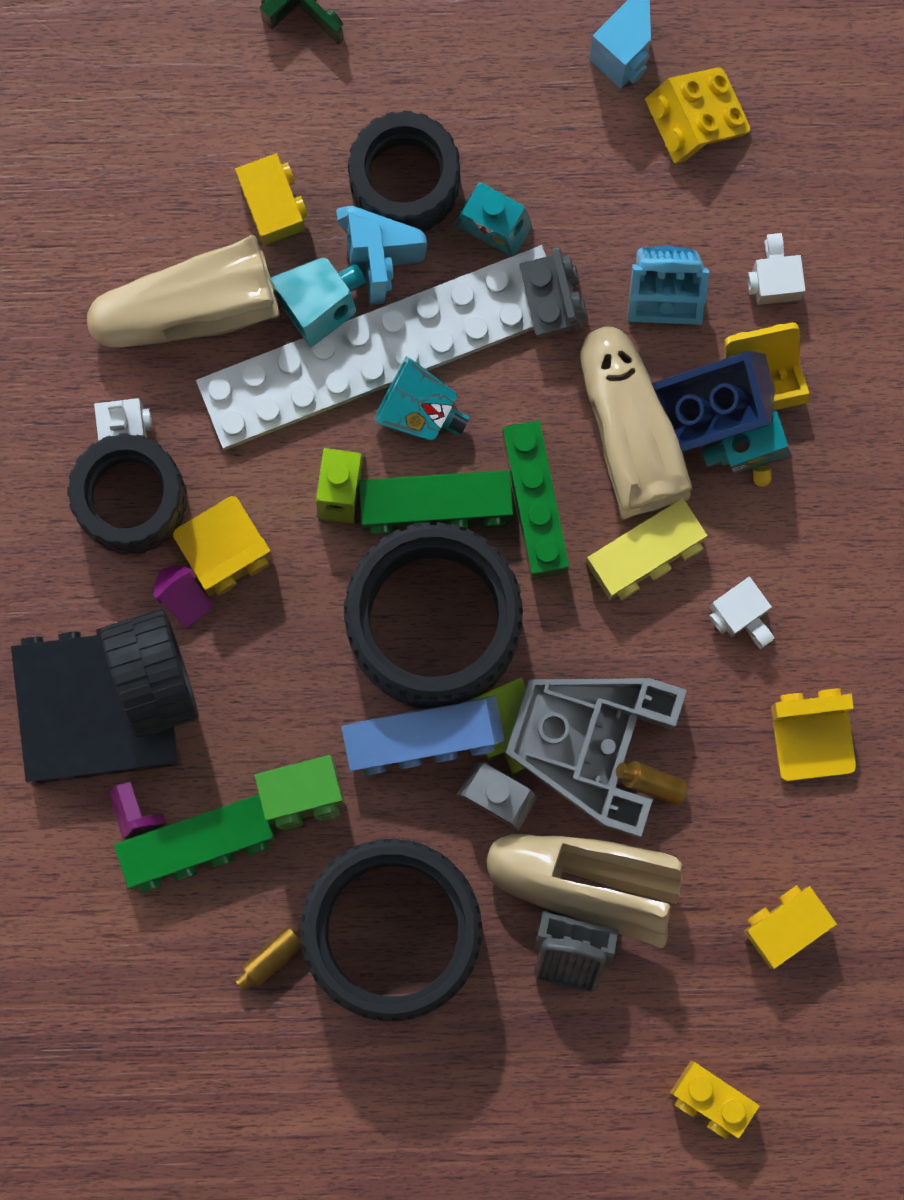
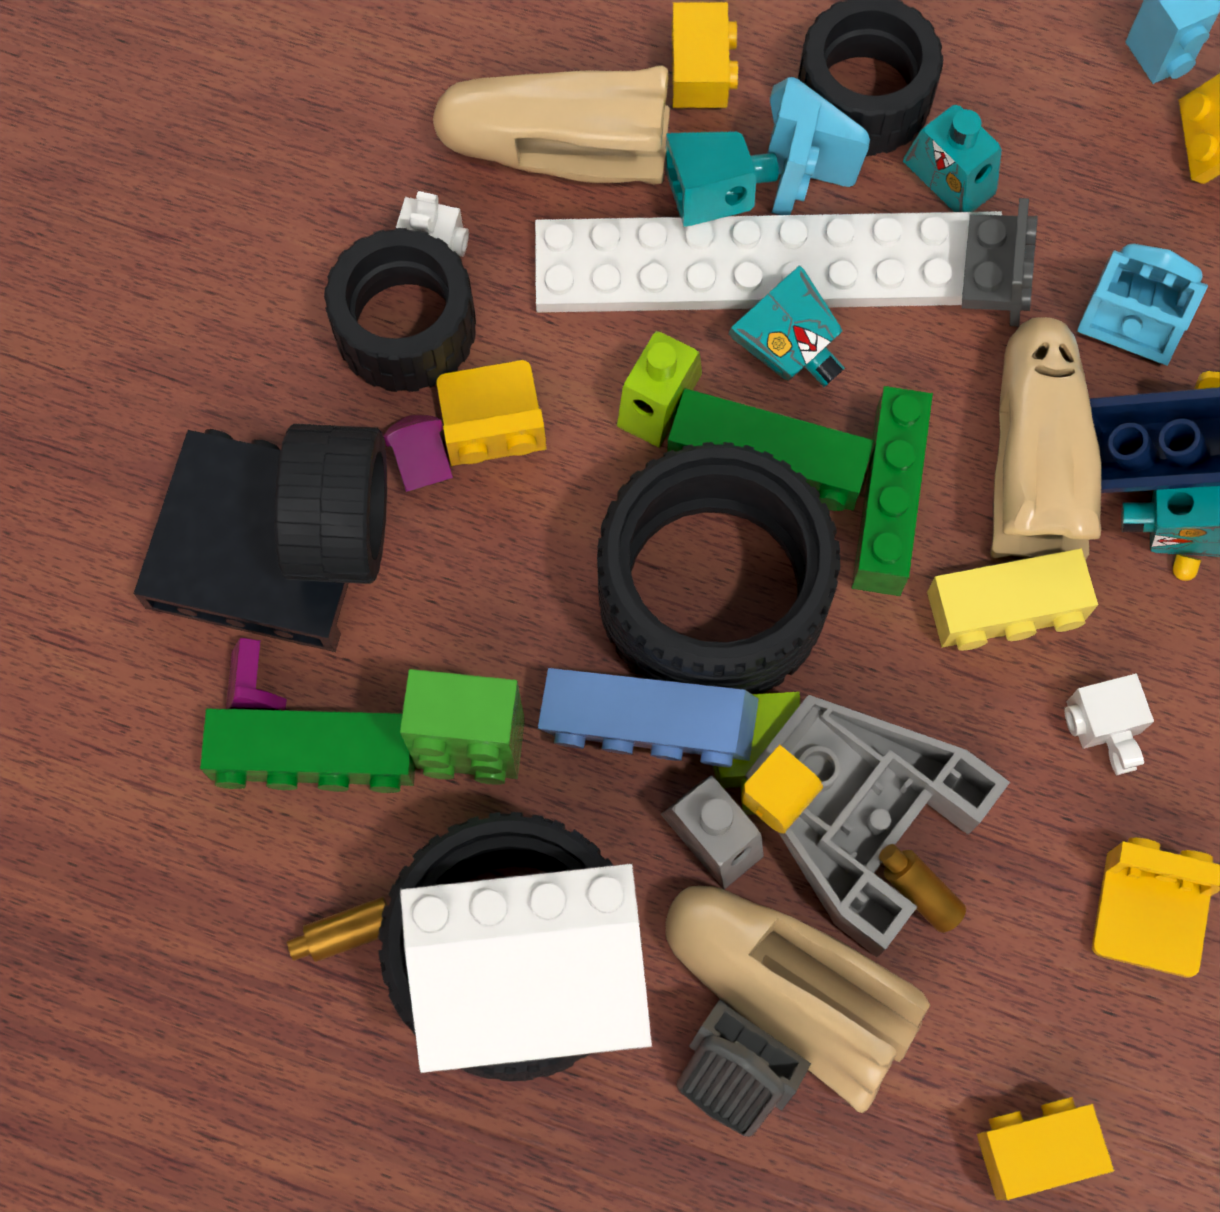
camera: 20 degrees right, 10 degrees down
(412, 946) = (525, 968): none -> white slope
(534, 757) = (780, 790): none -> yellow piece

